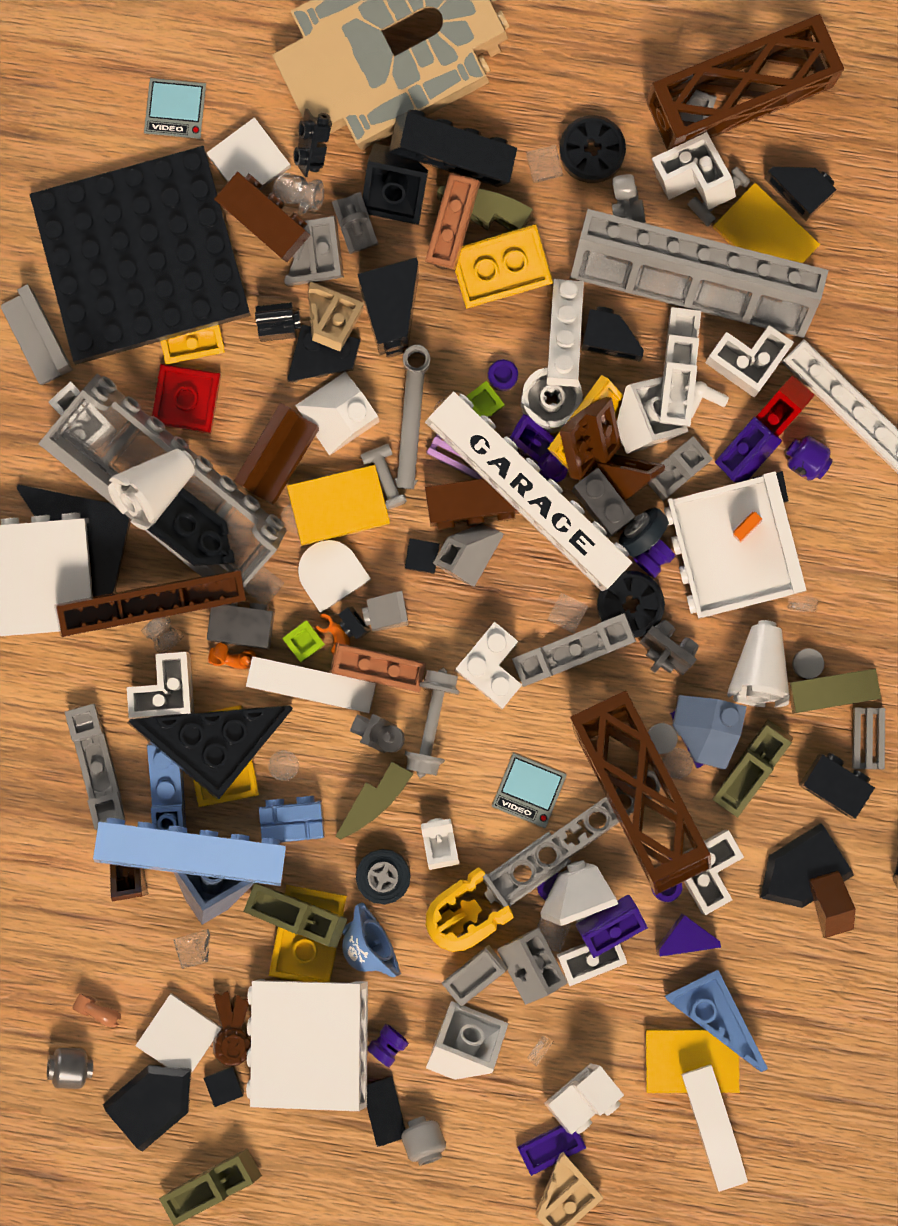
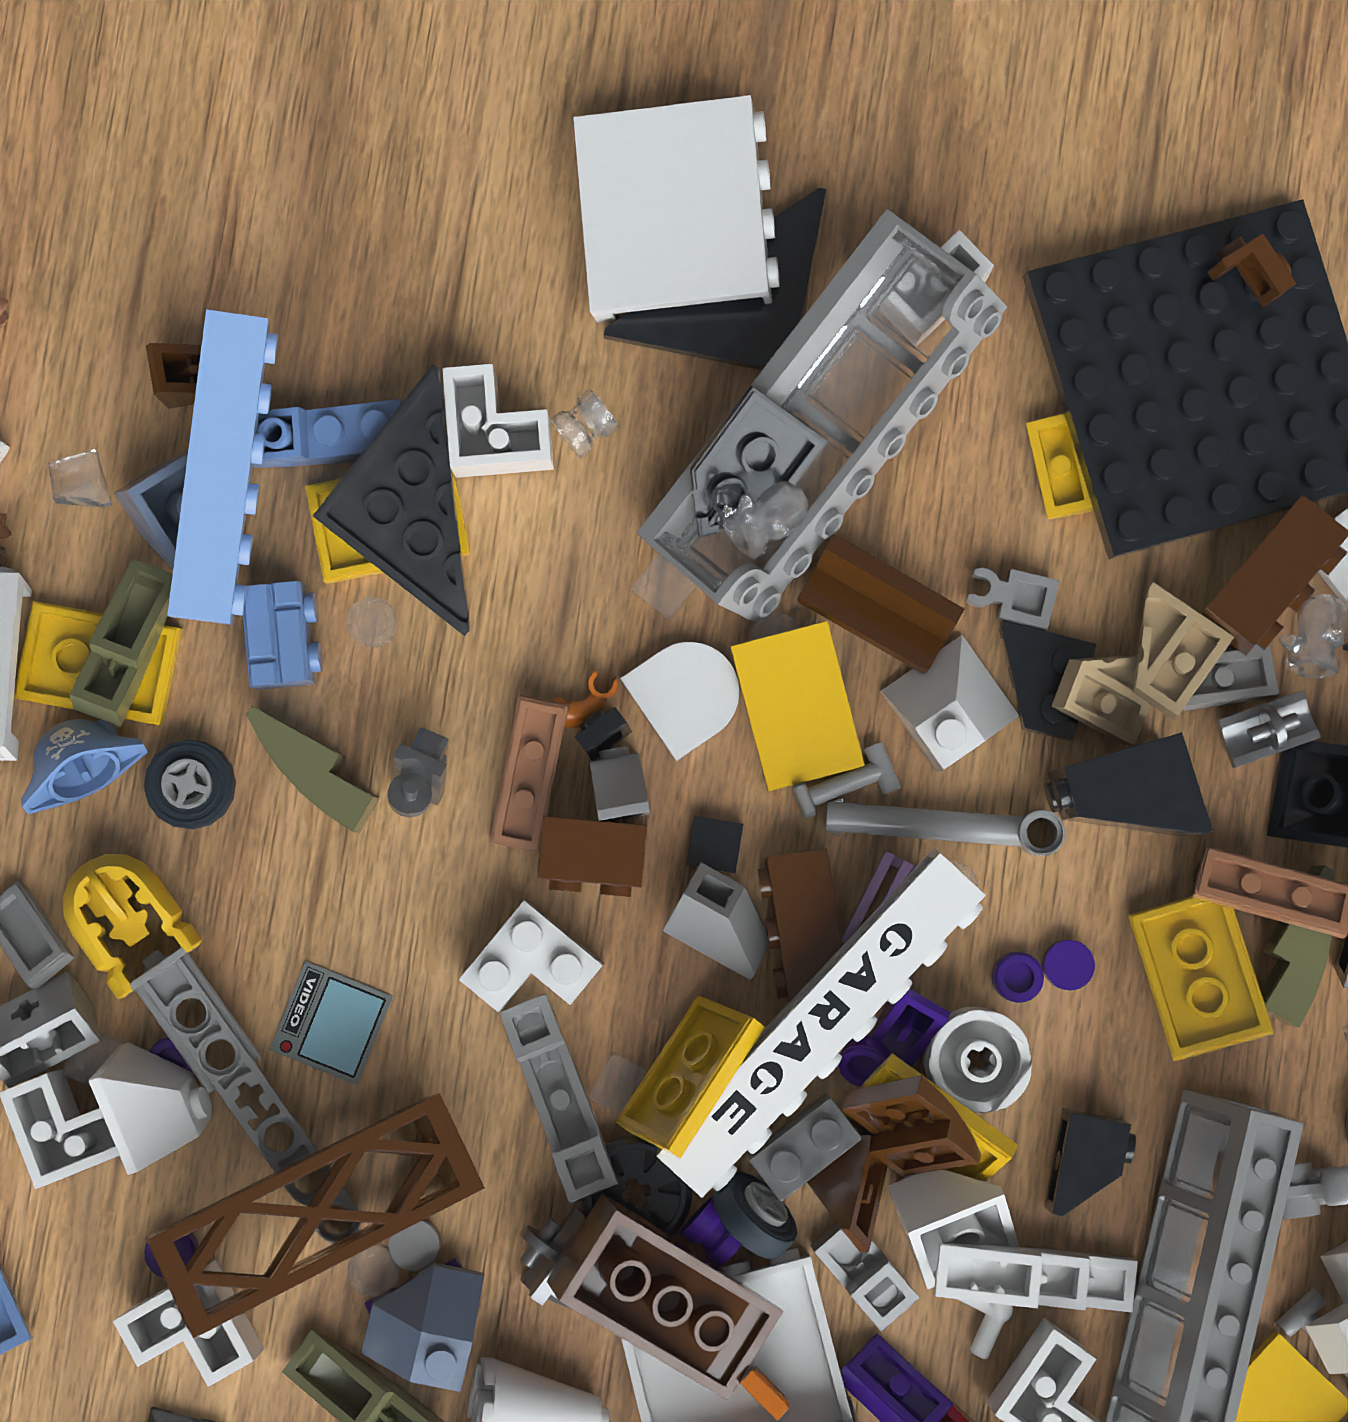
camera: 90 degrees right, 0 degrees up
(36, 336) = (1069, 215): light grey panel -> none
(72, 221) = (1259, 265): none -> reddish brown bracket
(95, 764) = (371, 322): light grey slope -> none
(149, 603) = (628, 394): reddish brown slope -> none
(151, 486) = (819, 395): white cone -> none
(186, 398) = (970, 457): red tile -> none
(220, 656) = (548, 516): orange arm -> none
(224, 517) = (771, 517): none -> clear animal
(241, 625) = (598, 549): flat silver brick -> none
(273, 368) = (1022, 598): none -> light grey plate
(277, 322) = (1099, 602): black brick -> none
(303, 641) = (573, 651): lime plate -> none
(307, 277) = (1174, 651): none -> tan wing
(310, 684) = (500, 662): white slope -> none
(426, 627) = (592, 853): none -> reddish brown brick
(439, 843) = (241, 876): white bracket -> none
(440, 683) = (374, 849): light grey piece -> none
(485, 400) = (973, 947): lime plate -> none
(495, 344) = (1068, 965): none -> dark purple tile
(560, 569) = (690, 1075): none -> yellow tile
(565, 333) = (1089, 1082): white plate -> none
(611, 926) = (93, 1163): dark purple slope -> none
(686, 937) = (82, 1285): dark purple slope -> none
(690, 585) = (663, 1297): none -> reddish brown slope

